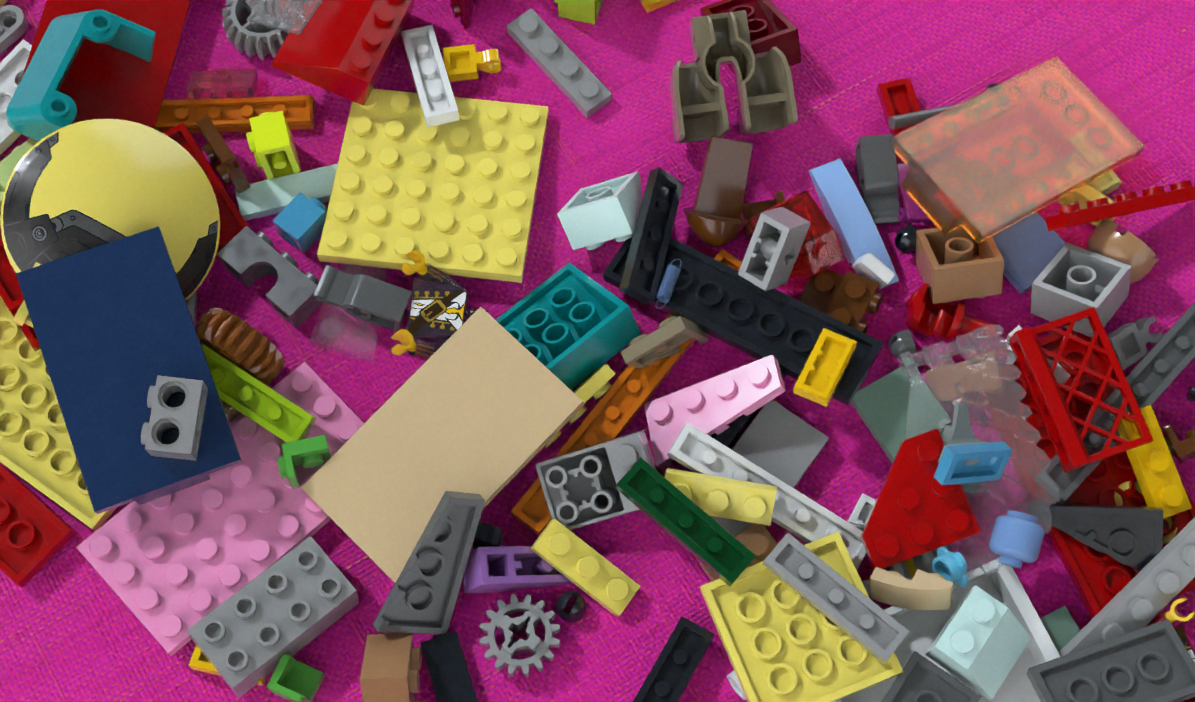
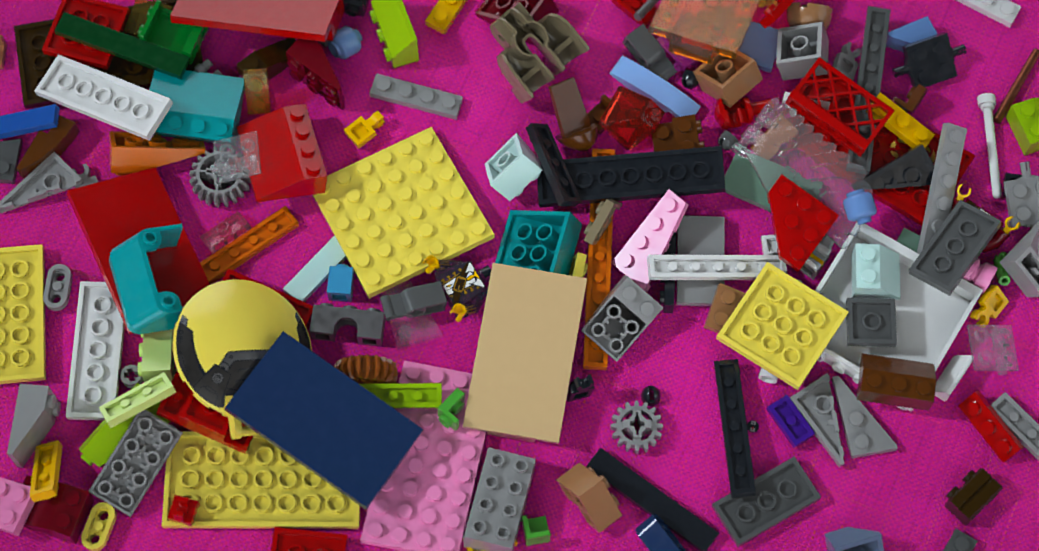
camera: 35 degrees left, 0 degrees up
(186, 417) = (383, 425): light grey brick -> none
(218, 150) = (265, 272): reddish brown plate -> none
(273, 145) = (293, 248): neon yellow brick -> none
(430, 76) = (351, 150): white plate -> none
(432, 576) = (572, 423): dark grey wing -> none
(508, 570) = (610, 392): medium lavender slope -> none
(585, 567) = (645, 368): light yellow plate -> none
(668, 283) = (581, 186): medium blue piece -> none
(685, 521) = (686, 307): dark green plate -> none
(726, 496) = (692, 284): light yellow plate -> none
(774, 248) = (628, 129): light grey brick -> none
(825, 367) = (701, 178): yellow plate -> none
(836, 598) = (790, 295): light grey plate -> none
(873, 269) = (685, 108): white tile -> none
(923, 592) = (831, 265): tan slope -> none
(951, 566) = (836, 243): medium azure plate -> none
(965, 456) = (806, 179): dark azure piece -> none

